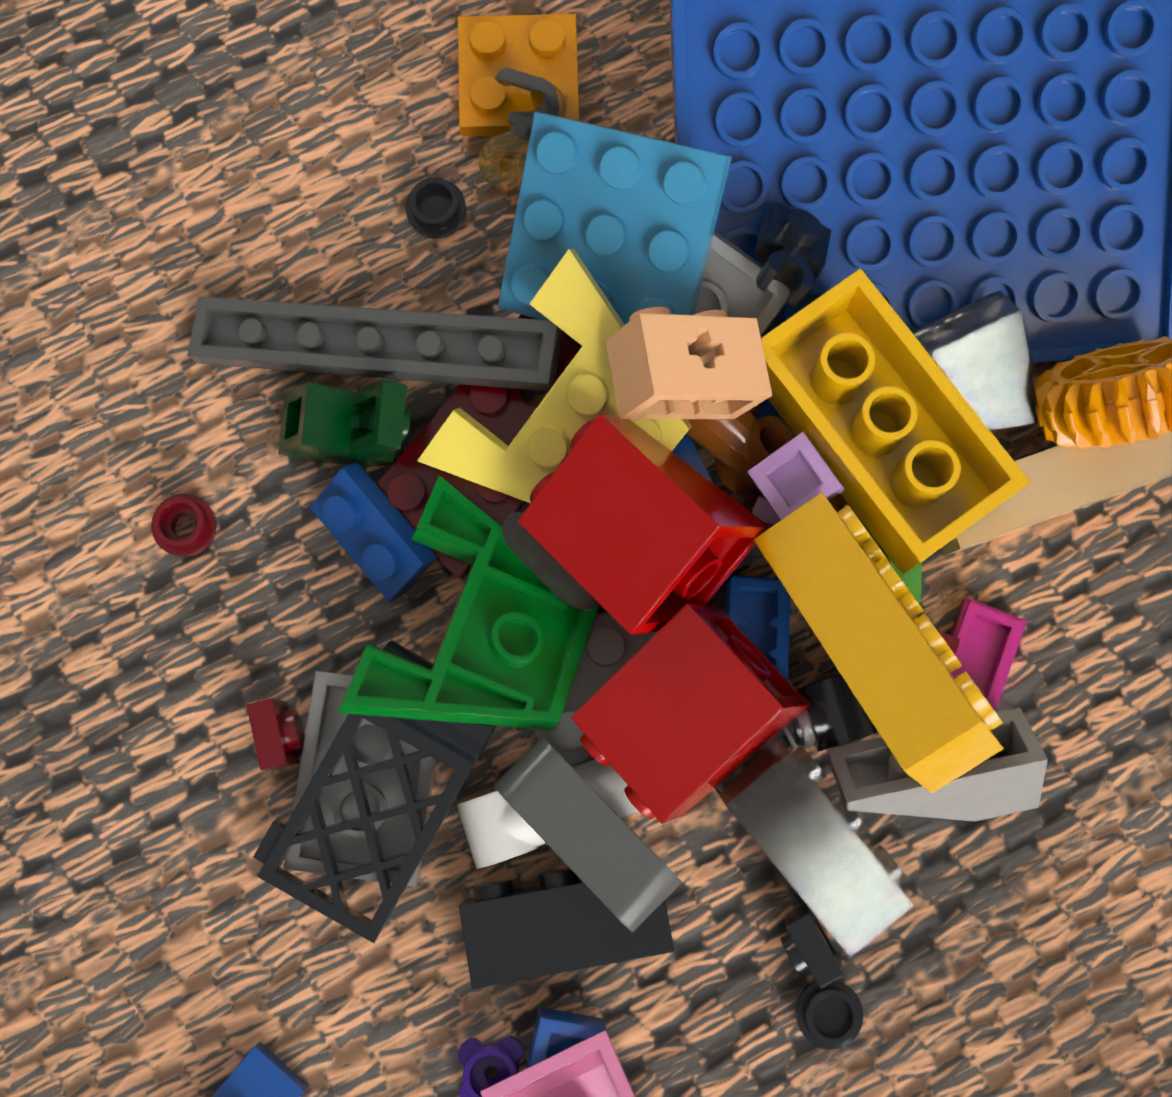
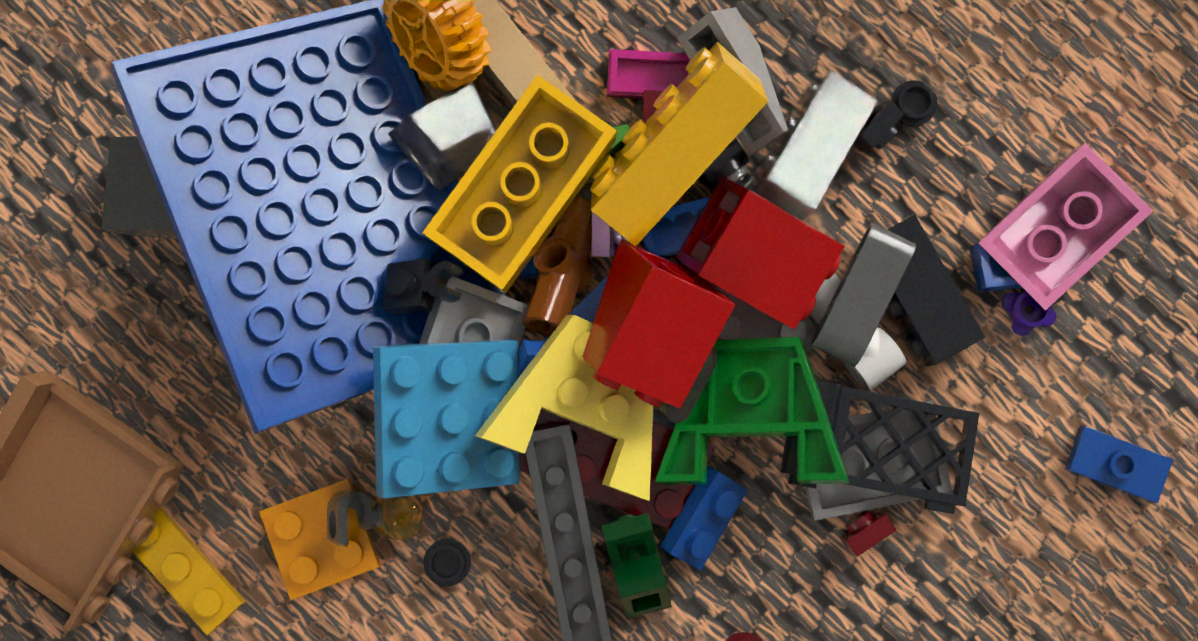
camera: 110 degrees left, 5 degrees up
(687, 365) = (536, 327): light nougat brick -> none
(795, 476) = (581, 231): lavender plate -> none

